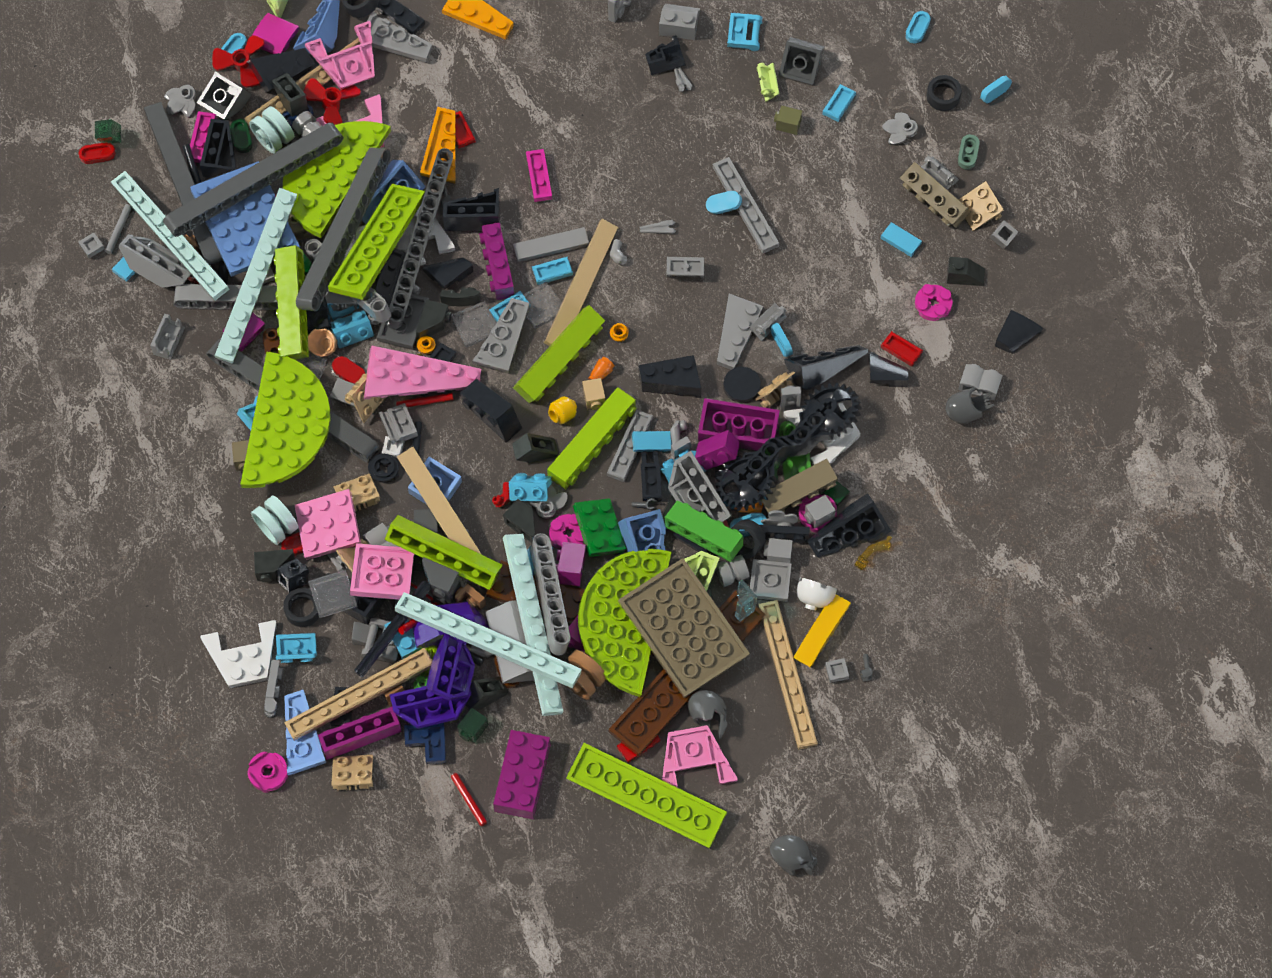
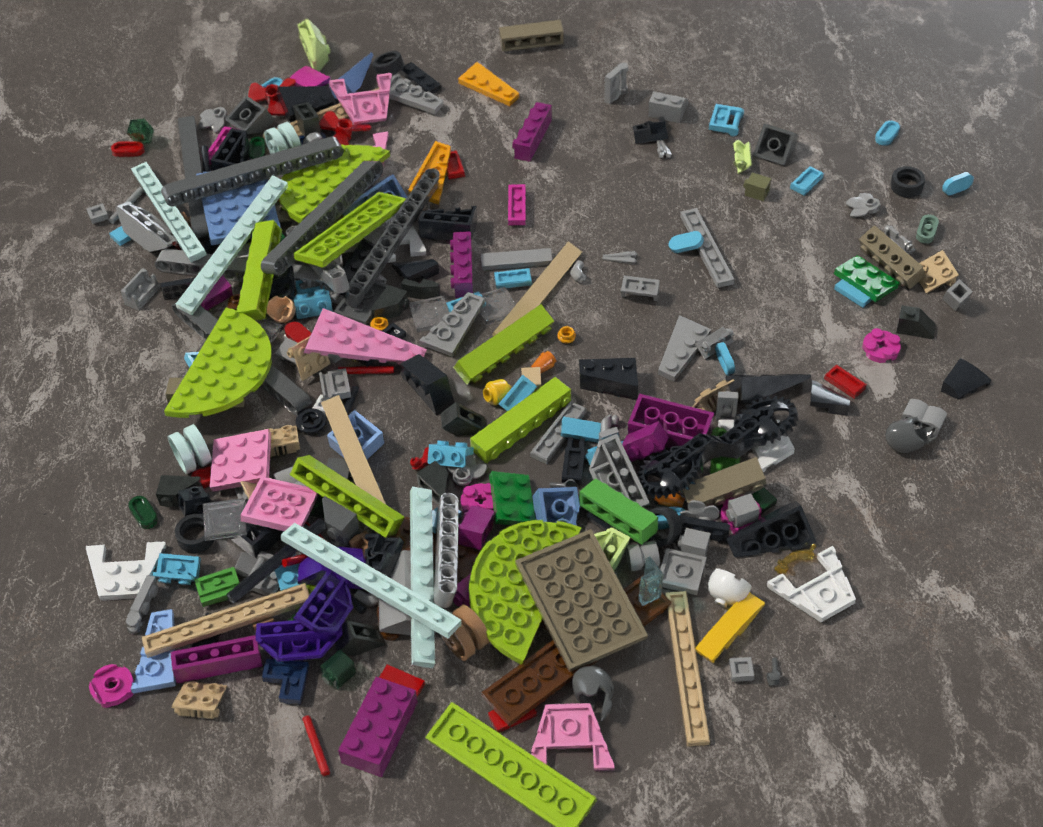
camera: 10 degrees right, 15 degrees down
(208, 329) = (175, 288): none -> black tile
(244, 591) = (143, 512): none -> dark green tile
(339, 659) = (215, 586): none -> bright green plate
(490, 607) = (383, 553): none -> black slope
(531, 725) = (402, 678): none -> red tile
(539, 75) = (532, 131): none -> magenta brick
(584, 411) = (517, 393): none -> medium azure tile
(742, 384) = (680, 391): black tile -> none
(903, 585) = (821, 596): none -> white wing
(911, 222) = (866, 278): none -> green plate

